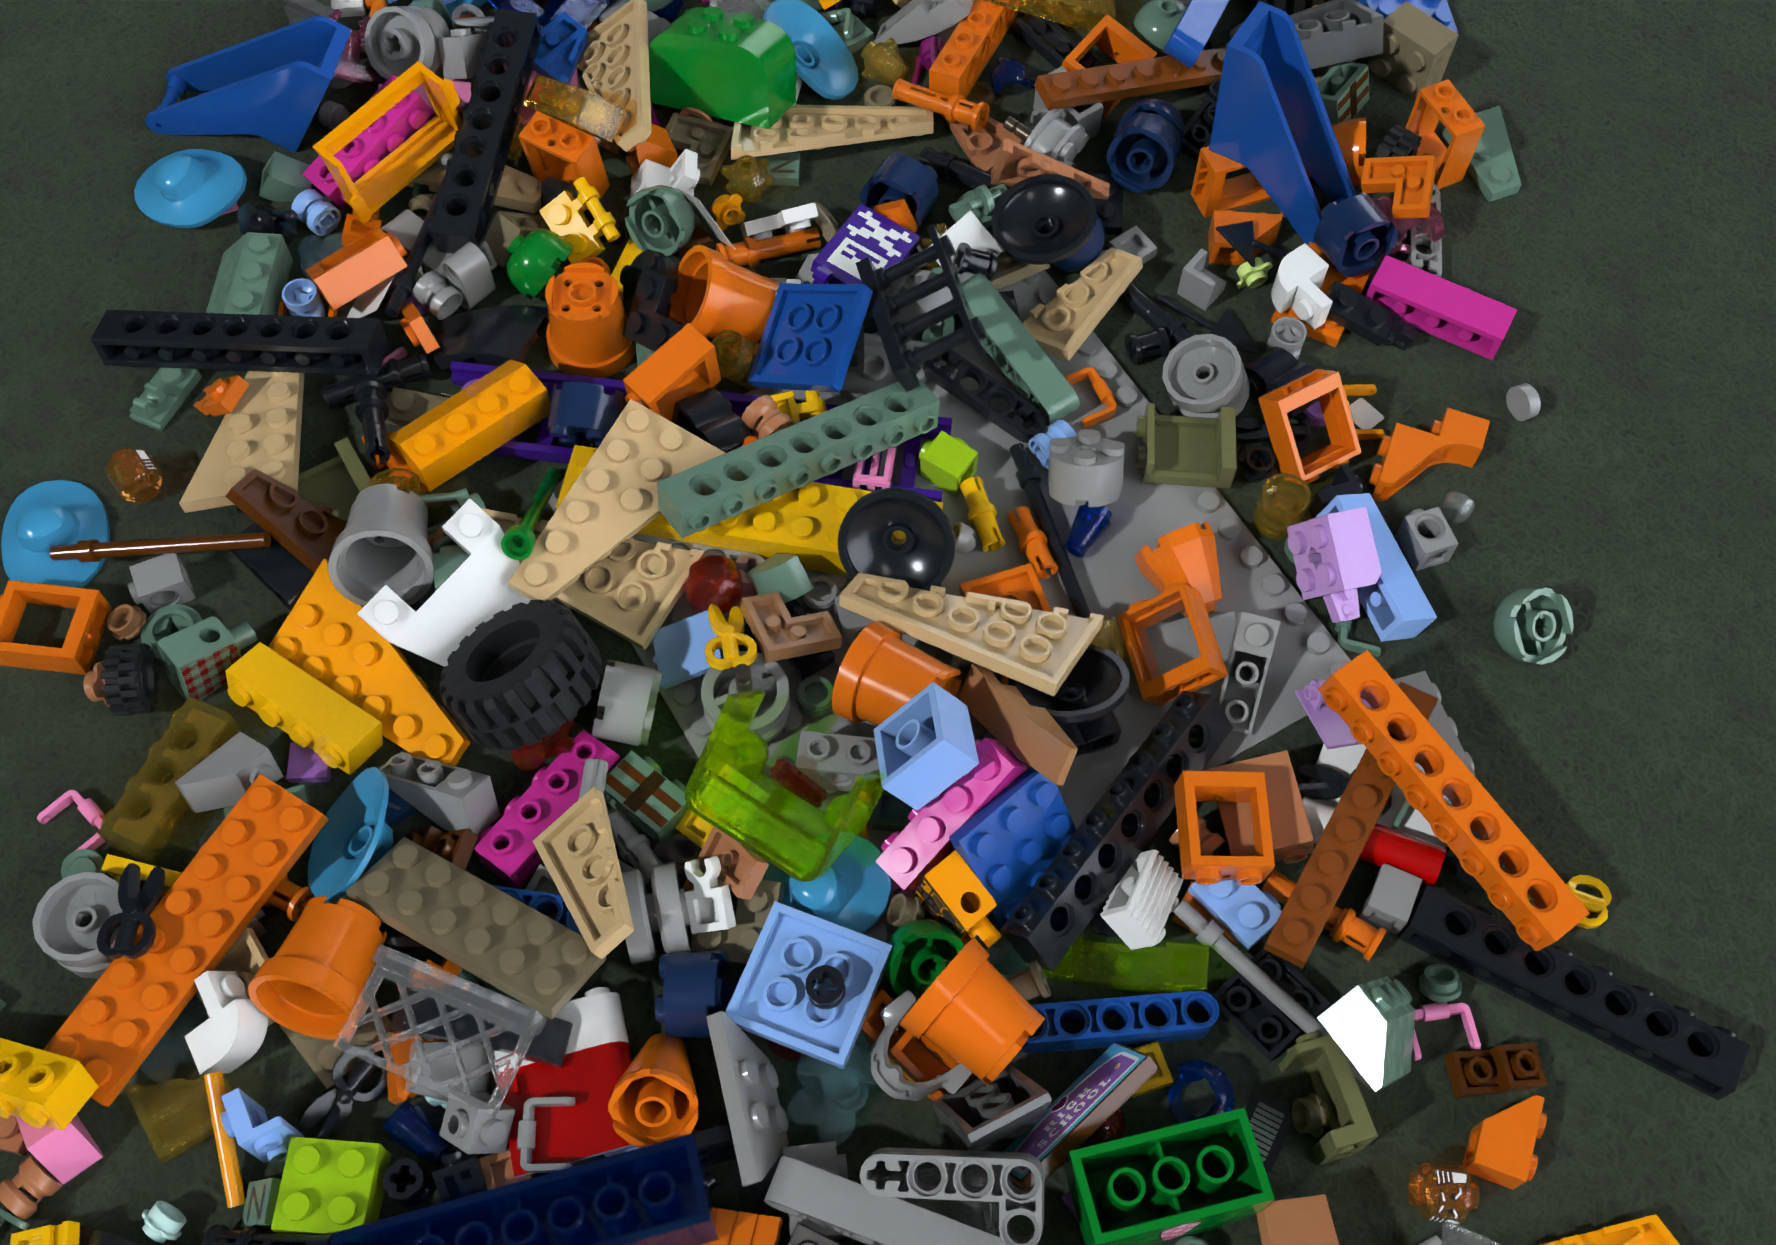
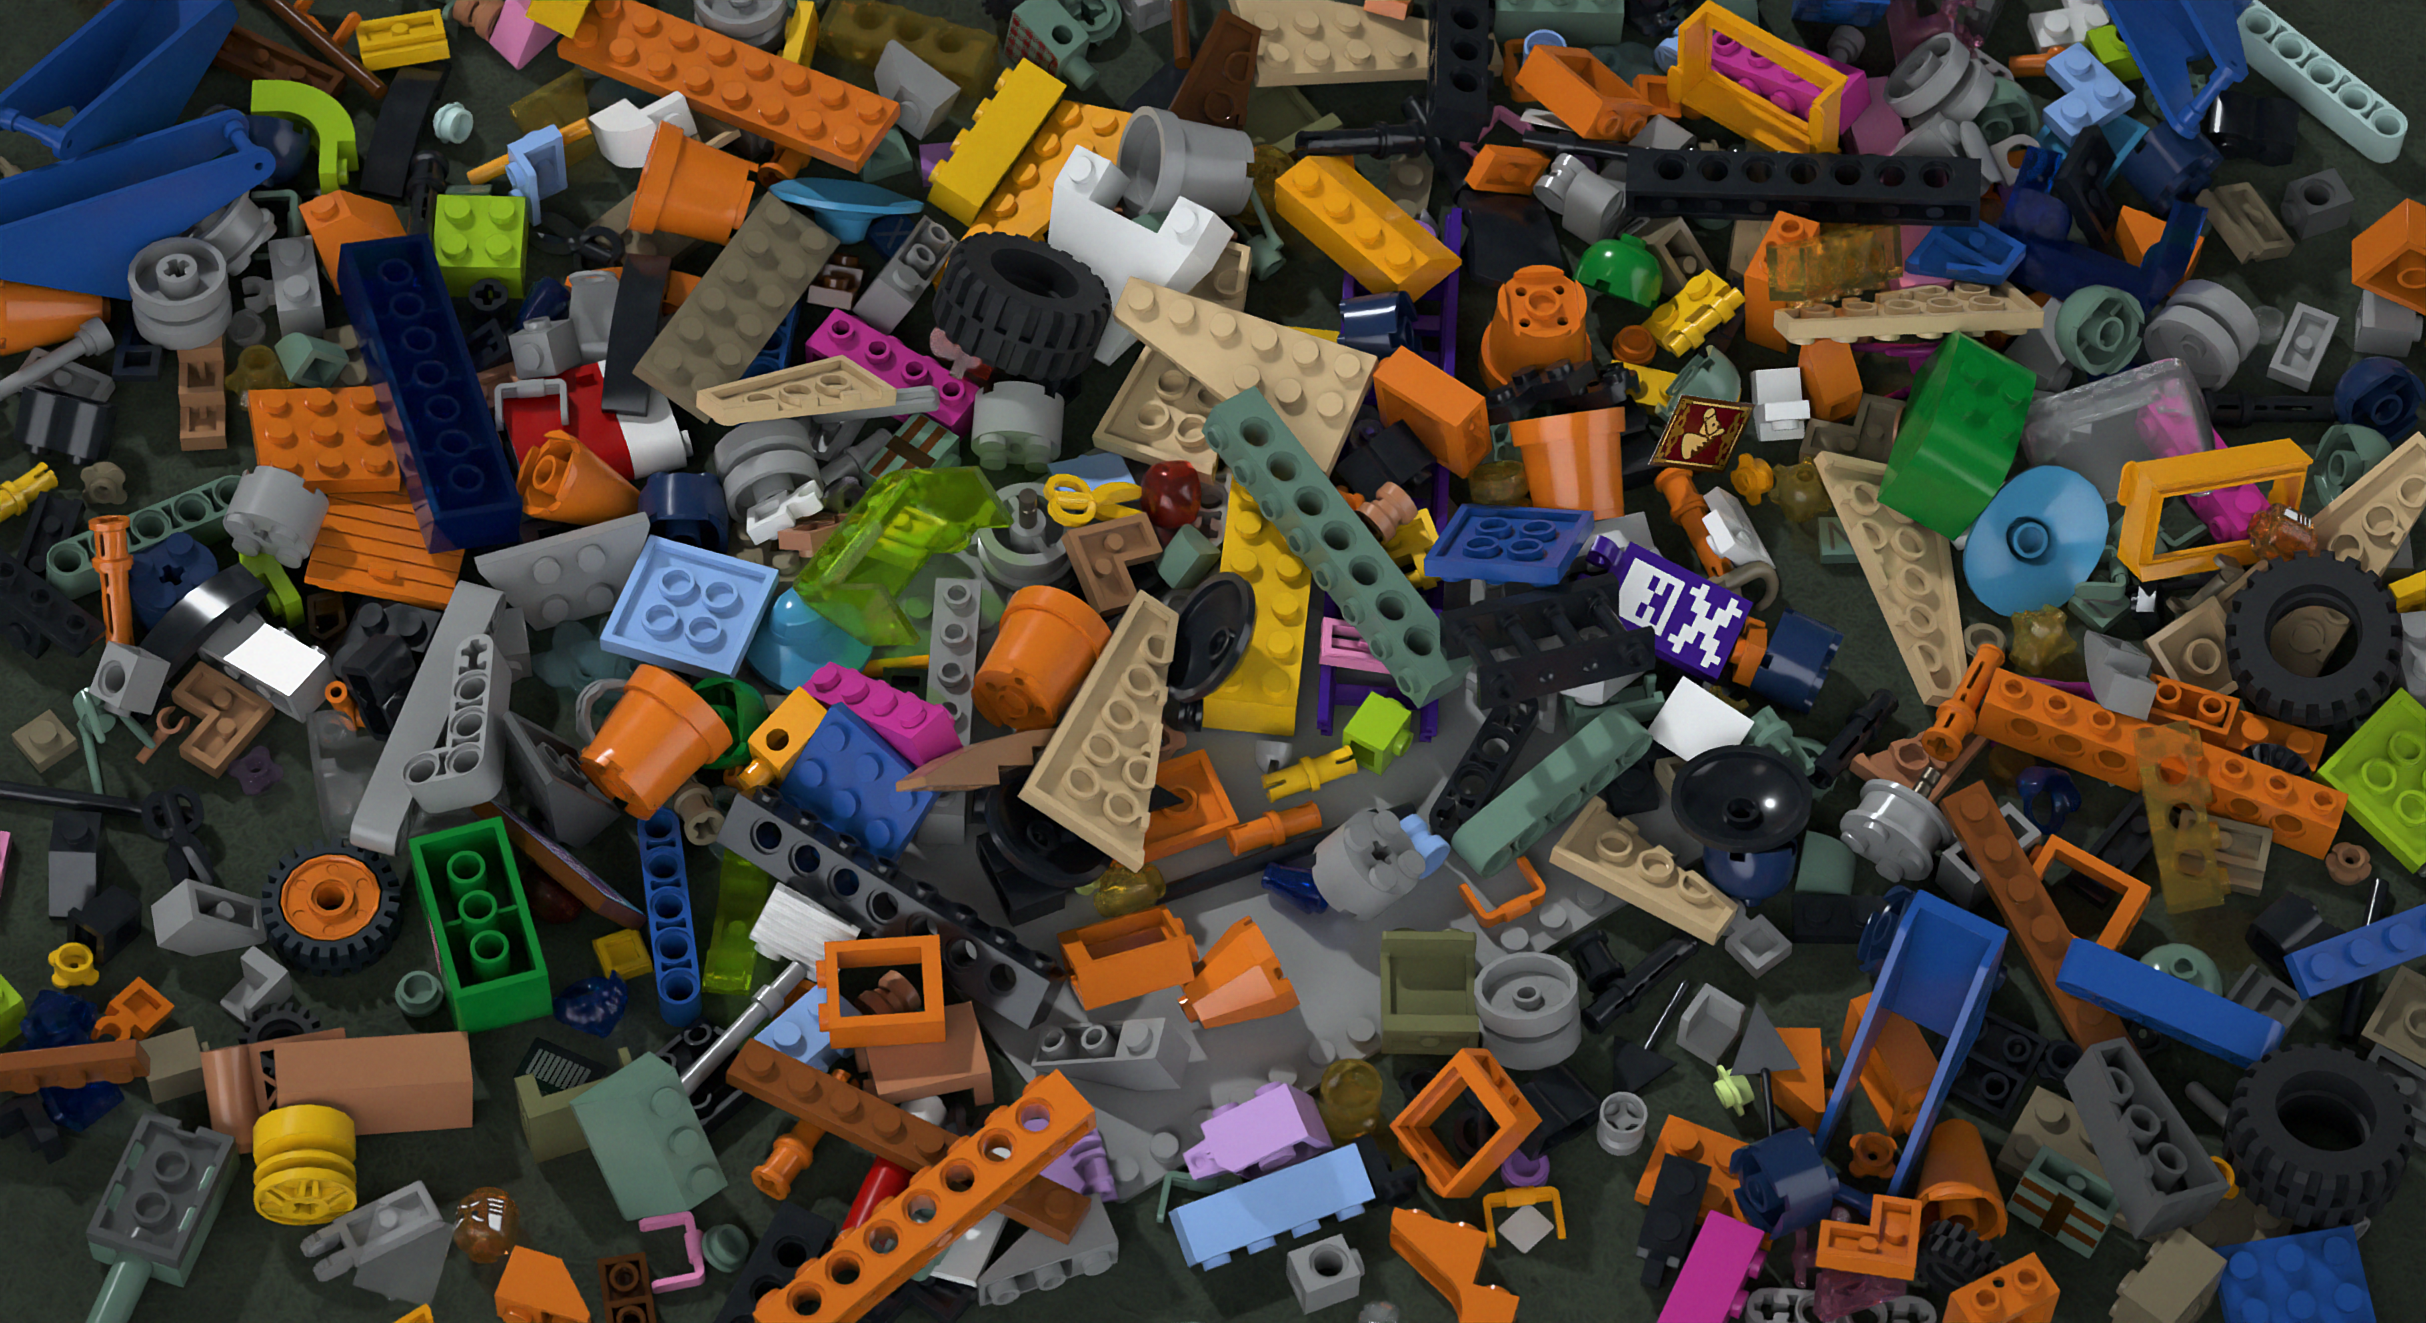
camera: 85 degrees right, 5 degrees down
(135, 908) = (747, 26): black piece -> none
(450, 991) = (649, 300): clear fence -> none
(520, 539) = (1178, 275): green piece -> none
(798, 782) = (921, 587): clear red axle -> none
(818, 976) = (682, 625): black bush -> none
(925, 746) = (935, 660): light blue brick -> none
(975, 261) = (1682, 747): black bush -> none
(1019, 162) = (1828, 804): nougat wing -> none
(1298, 286) = (1703, 1116): white brick -> none
(1391, 899) = (825, 1191): light grey panel -> none

